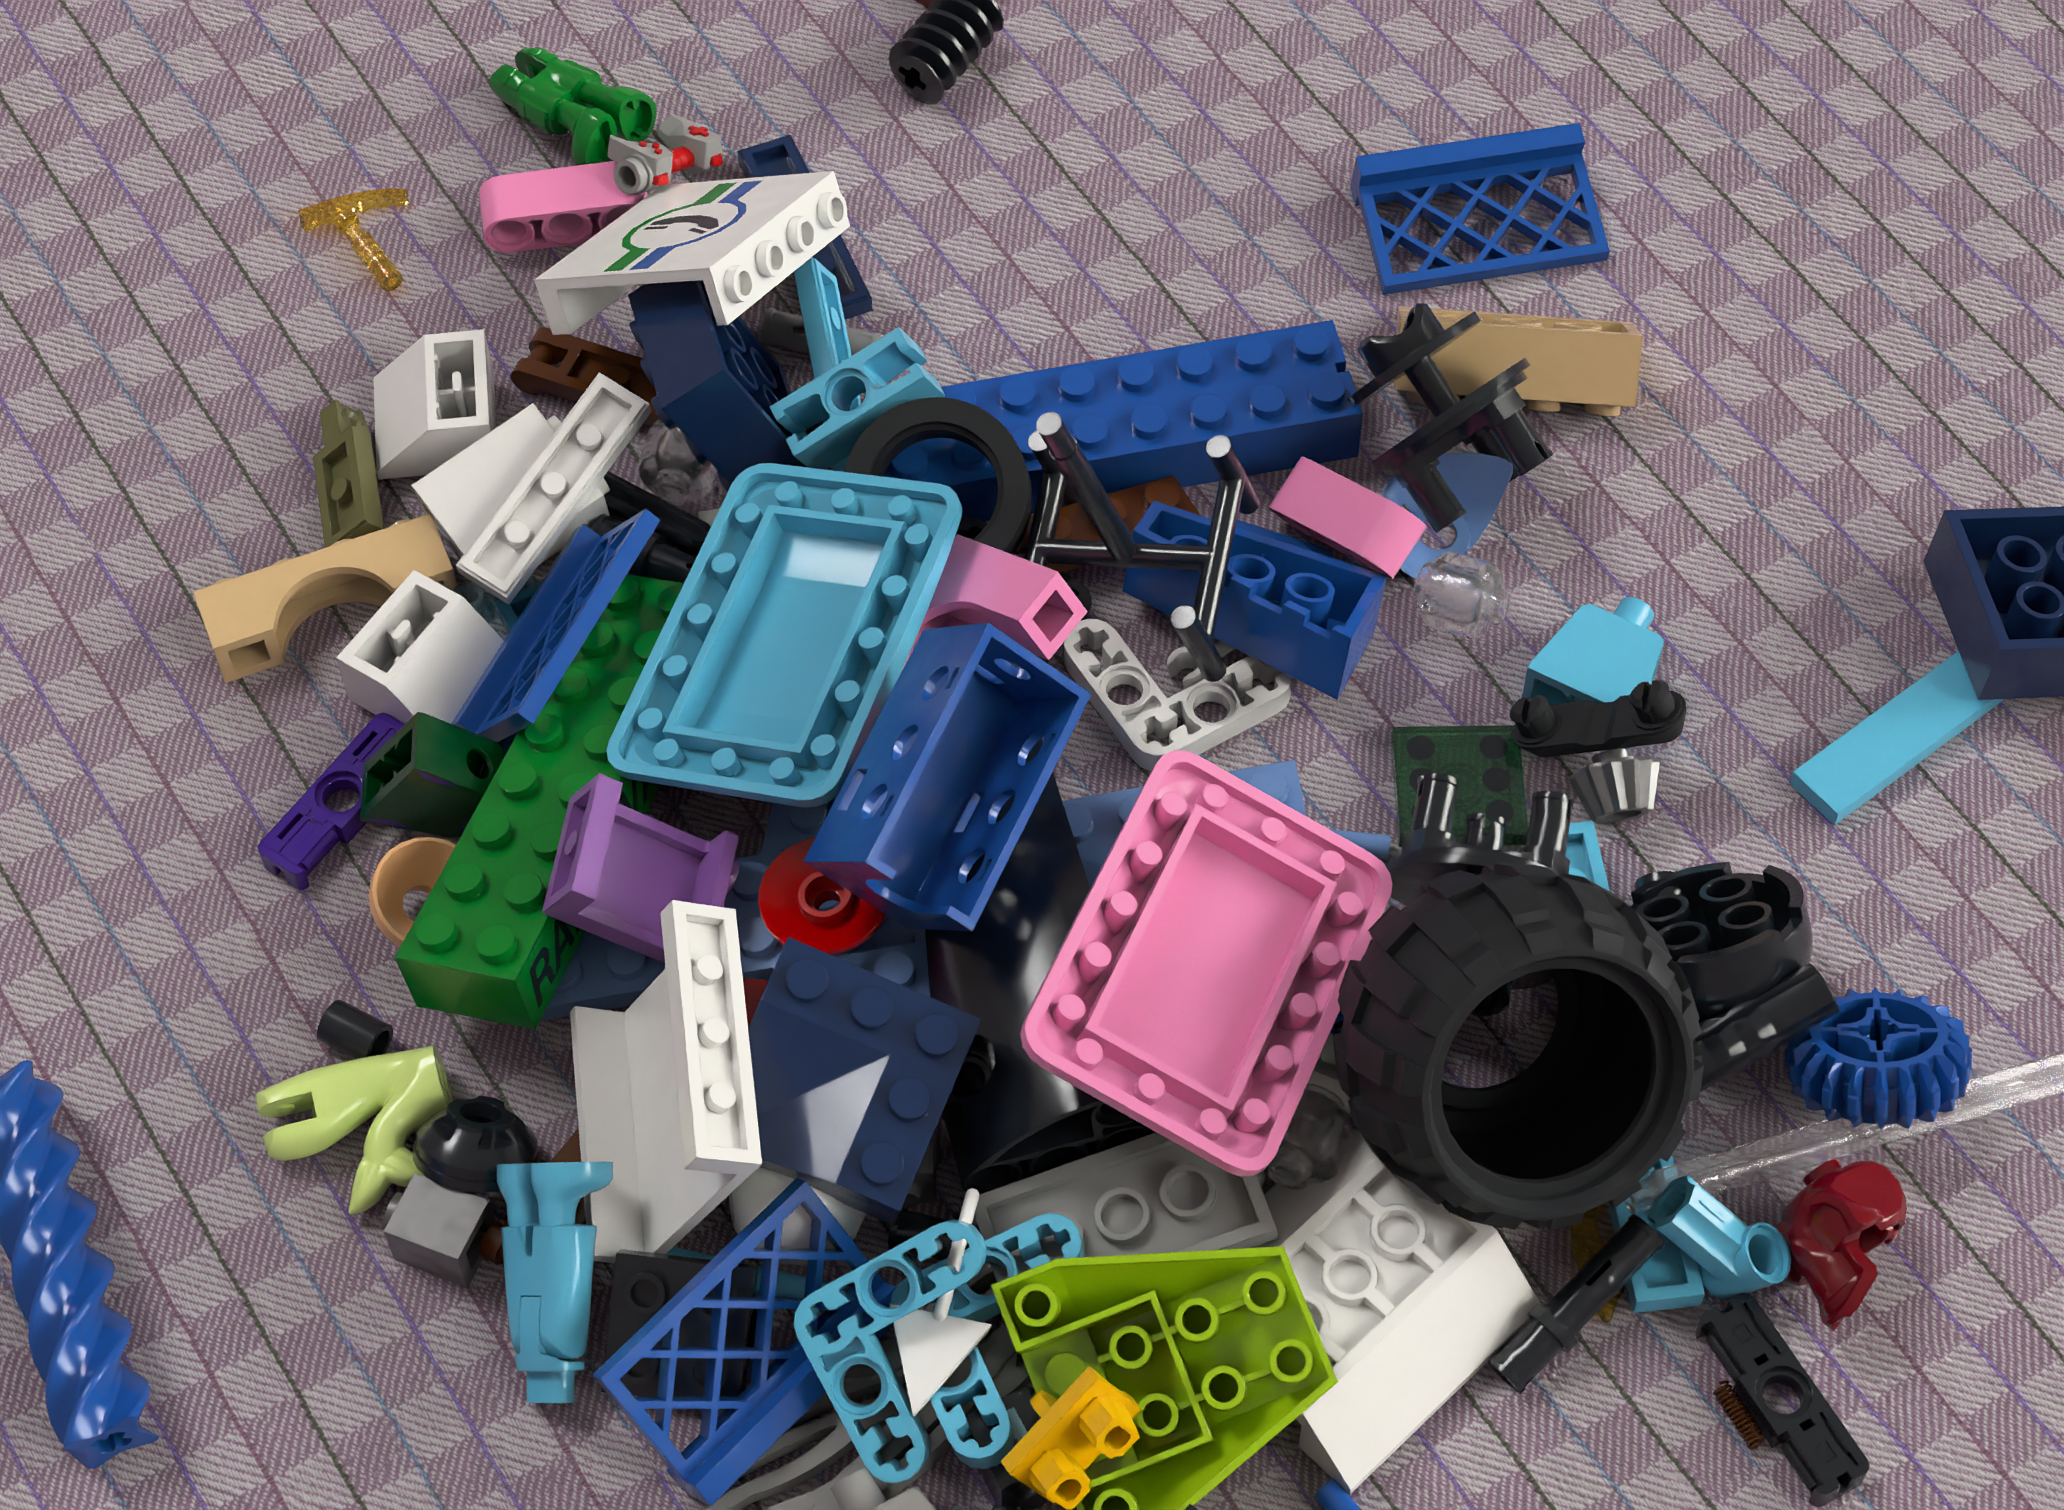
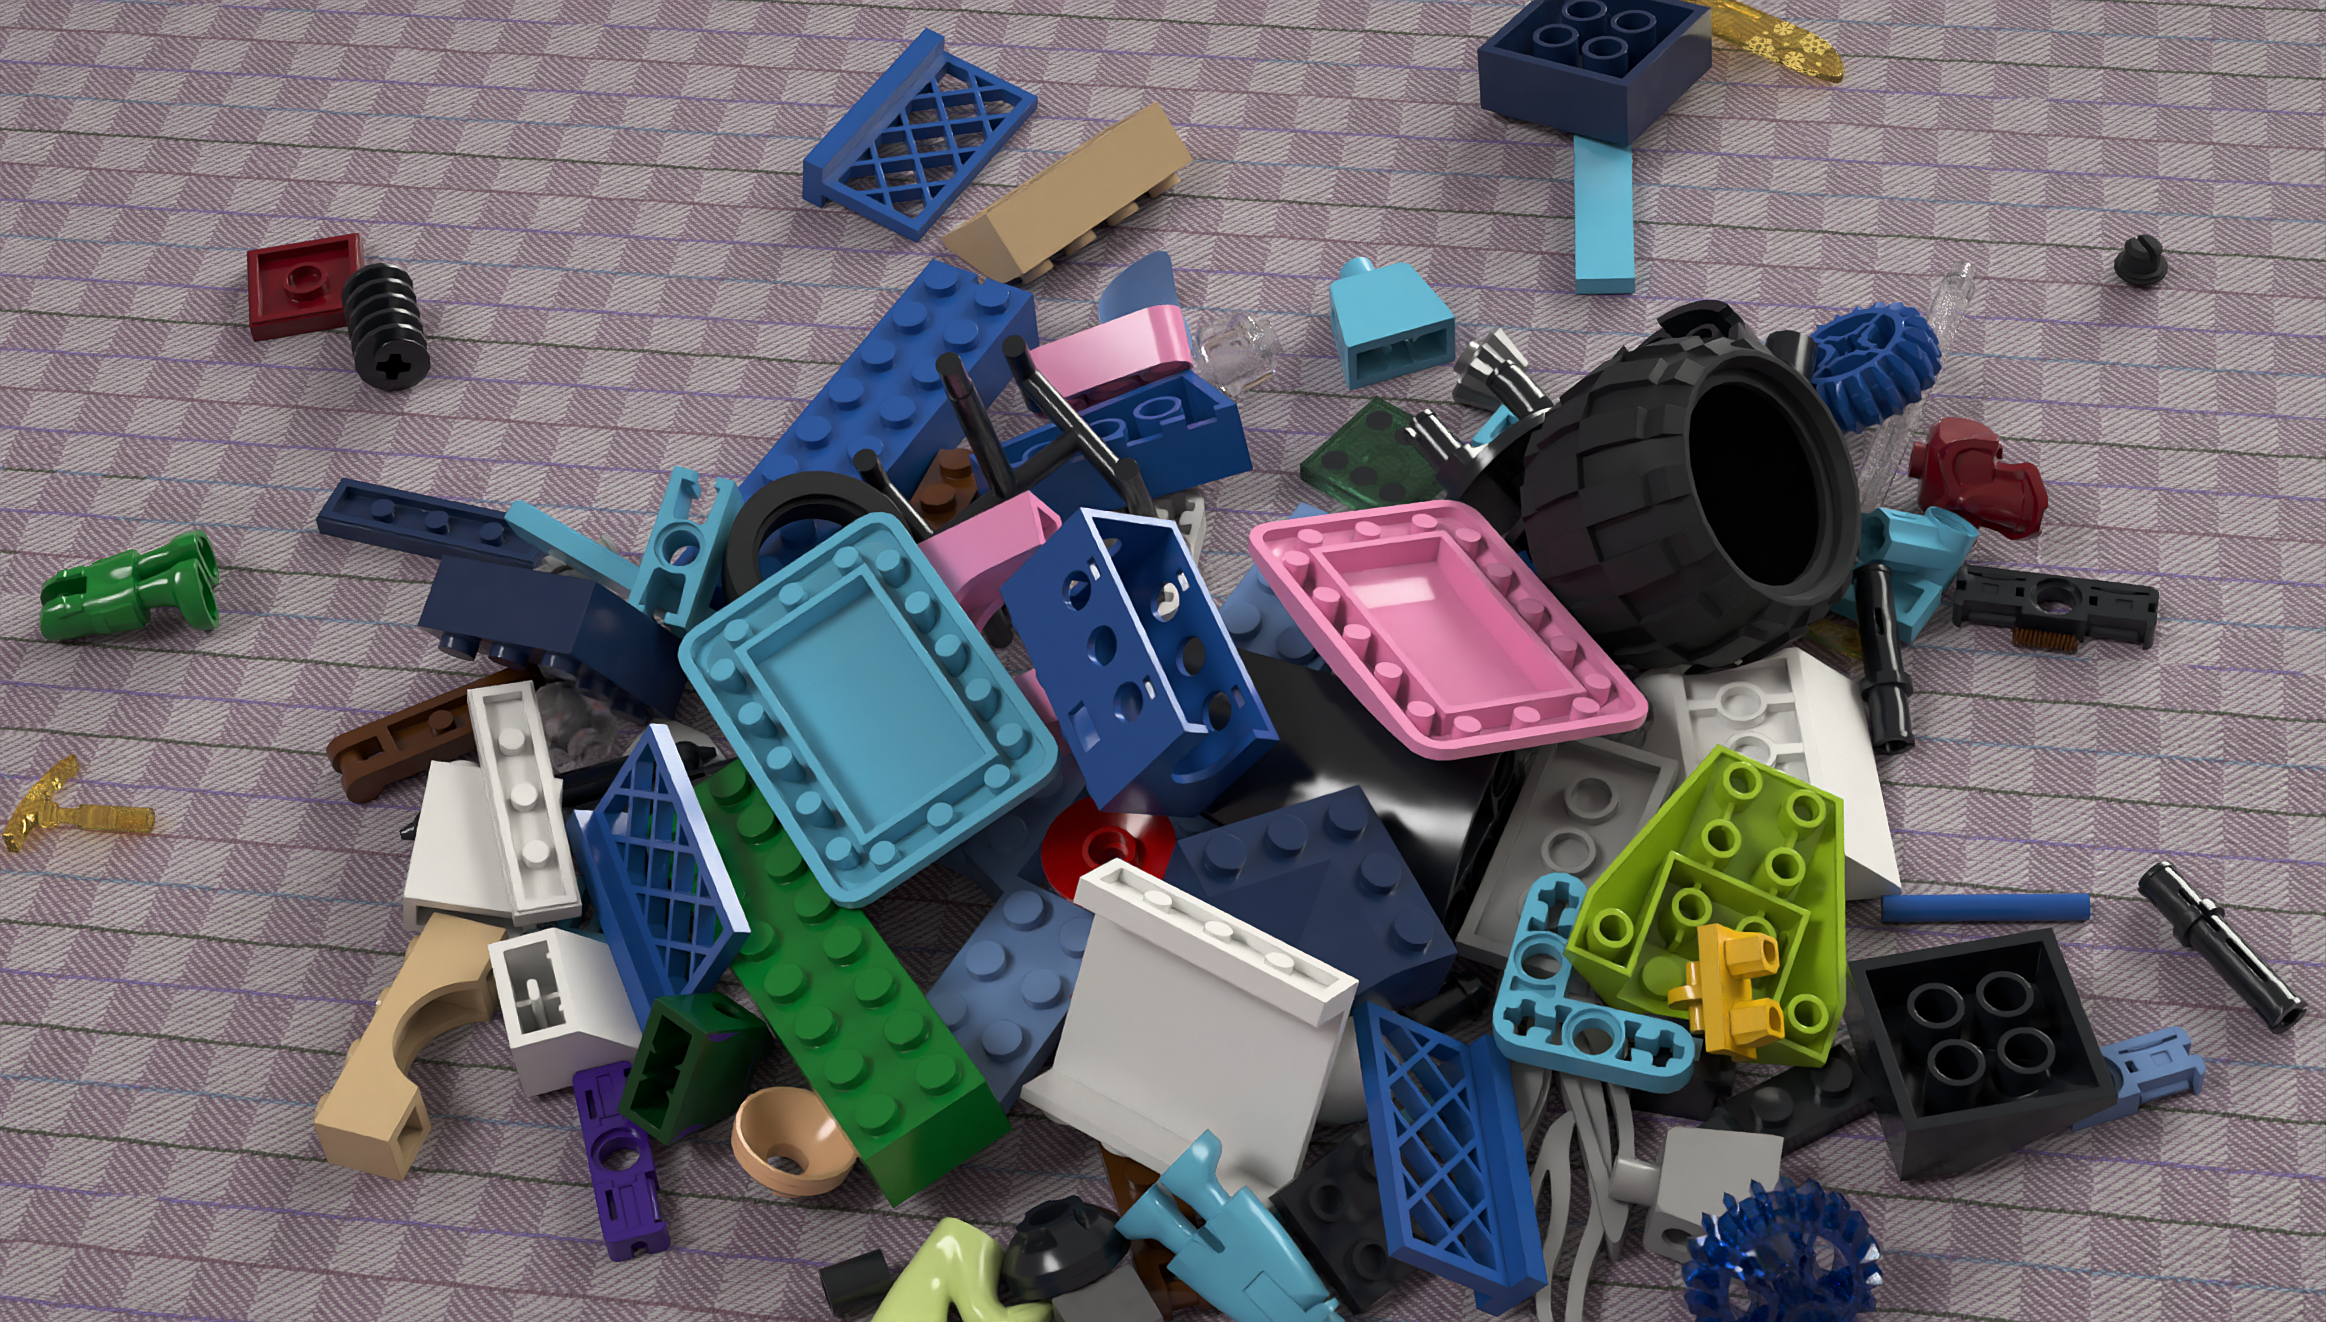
camera: 45 degrees left, 10 degrees down
(346, 476) = (317, 962): olive hinge -> none
(433, 403) = (325, 852): white slope -> none
(551, 206) = (228, 657): bright pink beam -> none
(625, 867) = (970, 957): medium lavender panel -> none
(650, 165) = (272, 554): light grey piece -> none
(726, 232) = (409, 554): white panel -> none
(861, 1346) = (1520, 1076): medium azure beam -> none
(932, 1341) = (1563, 1030): white piece -> none
(1485, 418) = (1104, 239): black piece -> none
(1633, 720) = (1411, 369): black piece -> none

